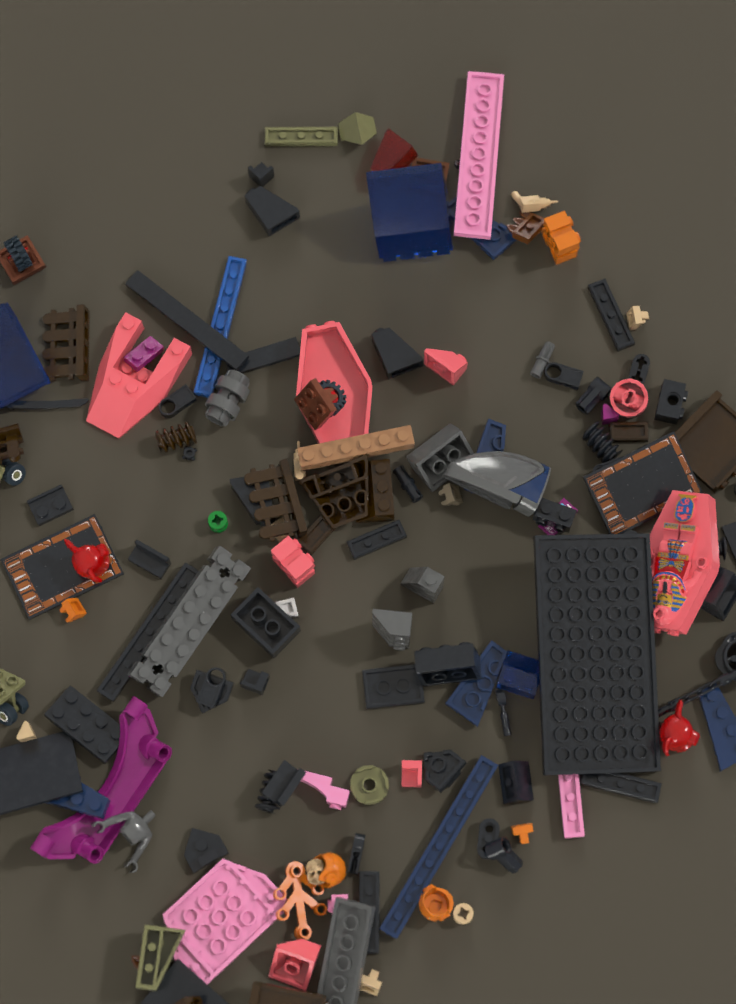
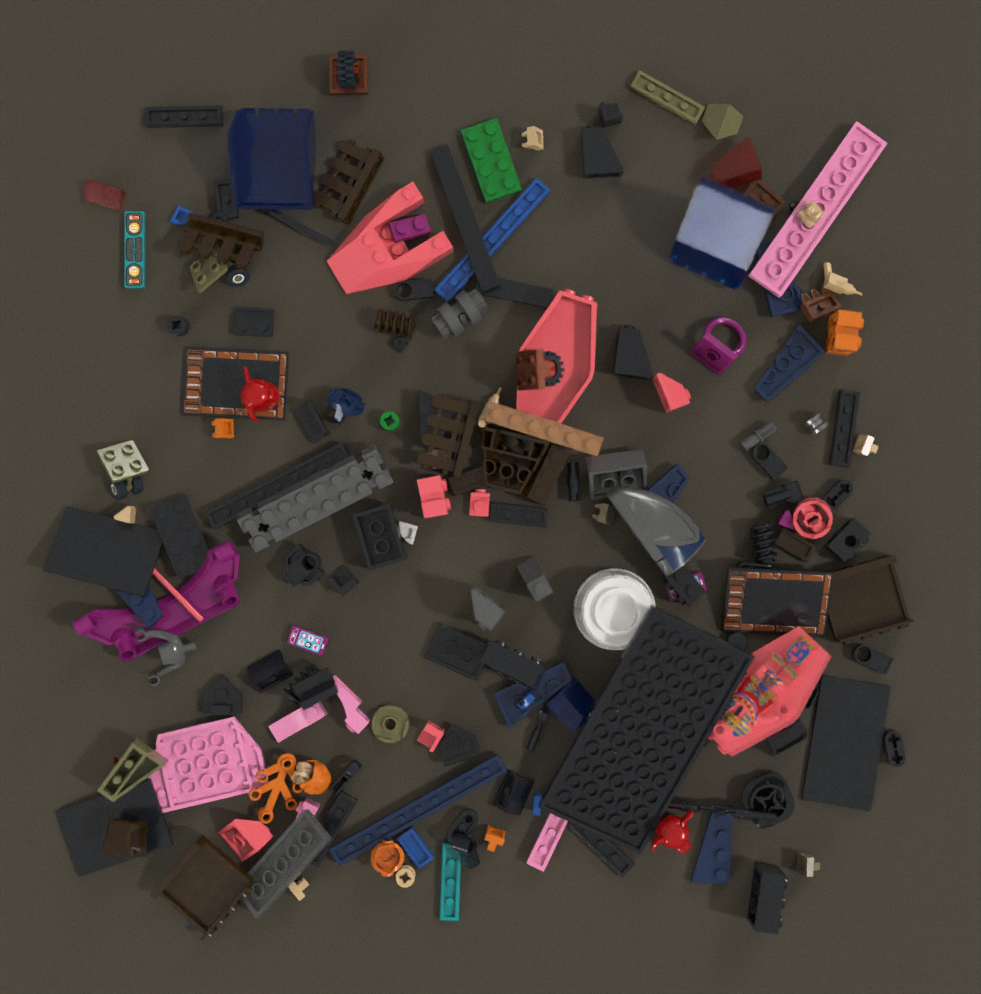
camera: 30 degrees right, 15 degrees up
(113, 777) = (177, 595): none -> coral axle
(170, 525) = (346, 403): none -> dark blue tile
(182, 263) = (491, 160): none -> green plate
(209, 225) = (534, 138): none -> tan tile
(233, 799) = (269, 671): none -> black panel
(252, 752) = (308, 640): none -> tile
(283, 828) = (296, 721): none -> bright pink slope
(336, 547) = (479, 503): none -> coral bracket
(457, 884) = (415, 847): none -> blue tile
(463, 311) = (715, 353): none -> magenta tile
(475, 160) = (810, 214): none -> tan tile
(477, 690) = (526, 700): none -> blue tile
(503, 572) = (611, 607): none -> white piece
(507, 897) = (450, 883): none -> teal tile
(534, 281) = (794, 359): none -> dark blue wing
(541, 779) = (536, 799): none -> blue tile
(584, 322) = (816, 423): none -> flat silver wheel

